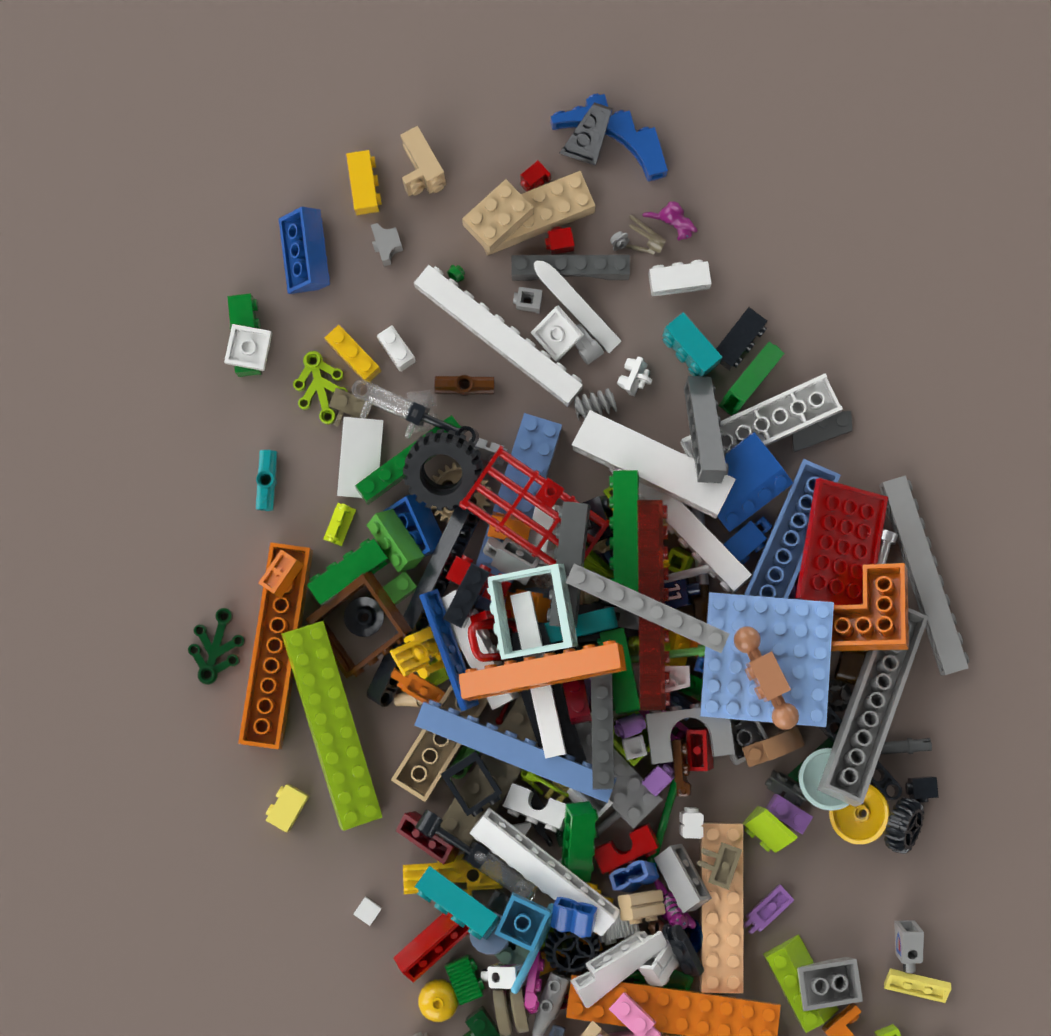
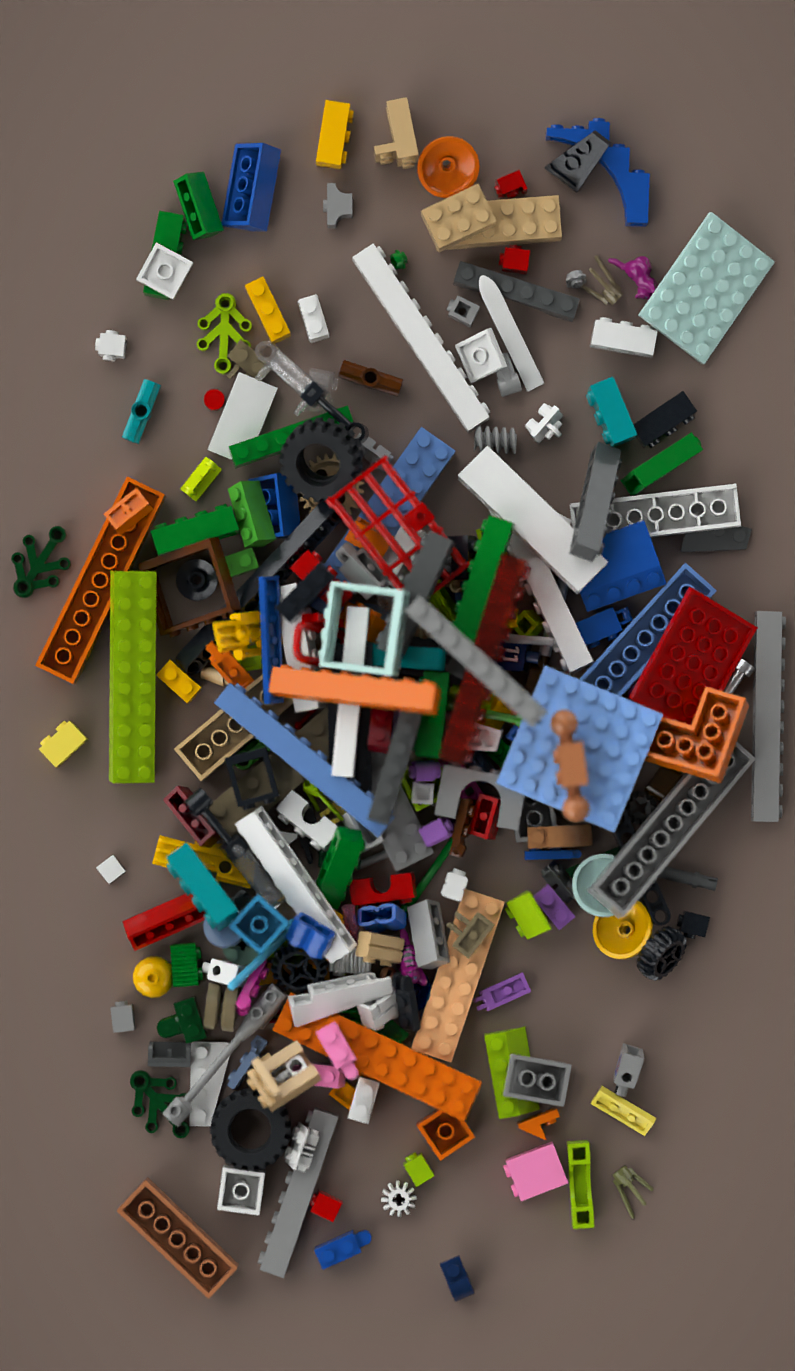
camera: 10 degrees right, 5 degrees up
(221, 430) = (111, 345): none -> white brick
(261, 281) = (198, 205): none -> green brick
(329, 449) = (214, 399): none -> red tile
(376, 715) = (179, 681): none -> yellow brick
(486, 177) = (454, 177): none -> orange dish
(606, 889) = (350, 920): none -> clear pink pin
(738, 211) = (706, 288): none -> light aqua plate
(770, 765) = (553, 853): none -> blue hinge

